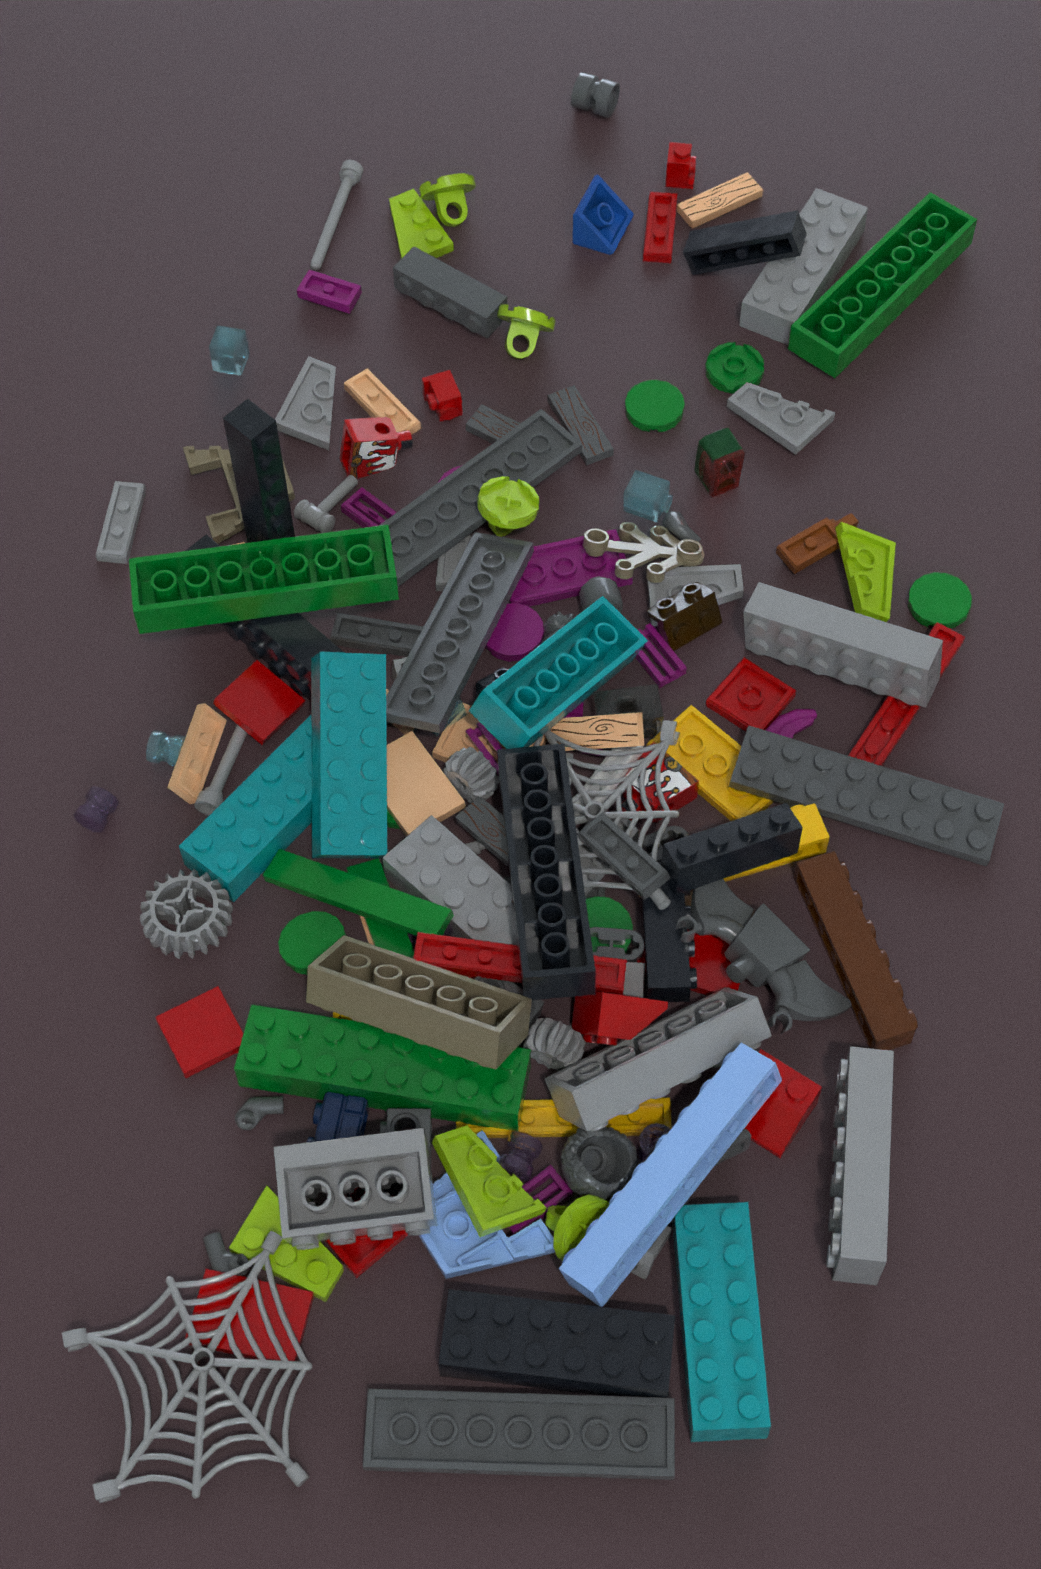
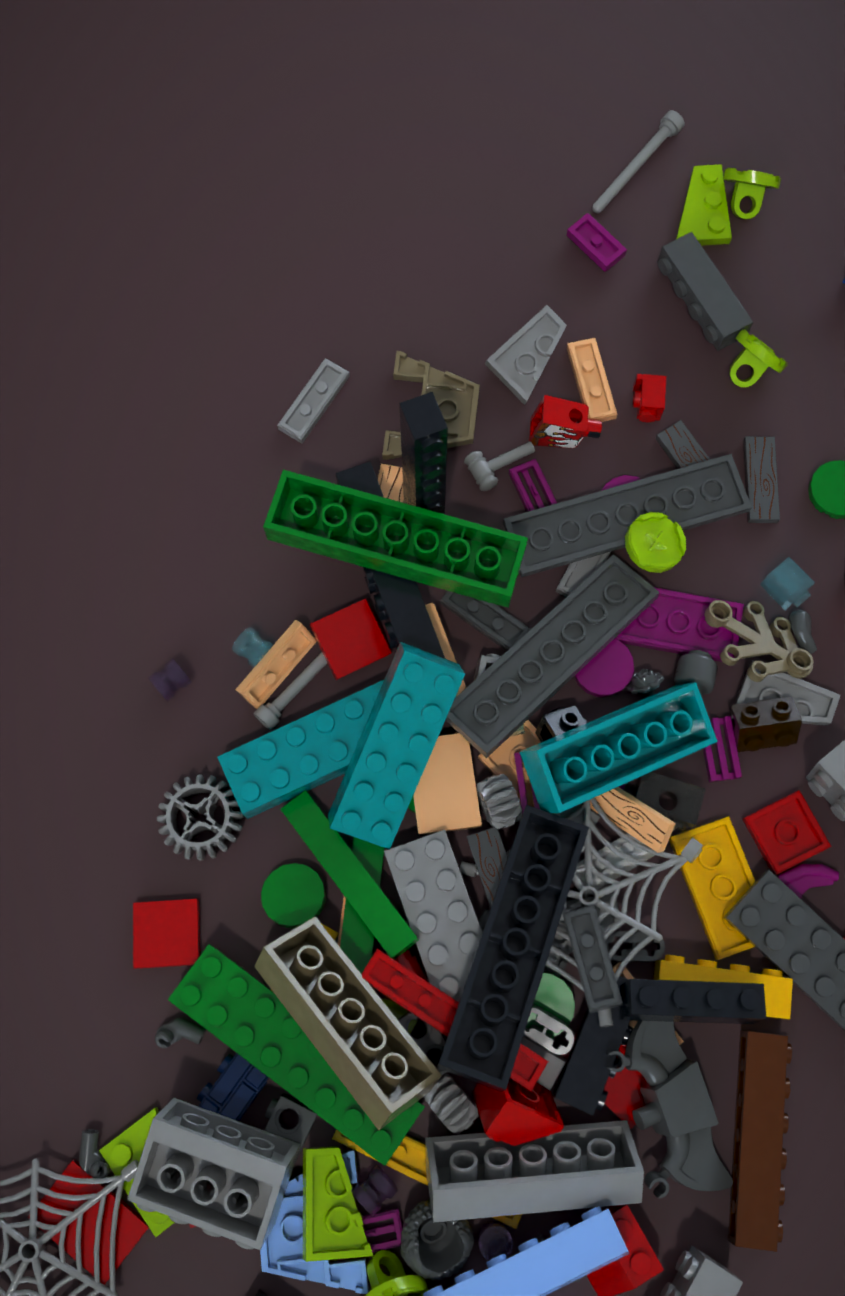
camera: 25 degrees right, 15 degrees up
(229, 350) = (480, 267): clear light blue brick -> none
(676, 784) = (675, 897): torso -> none

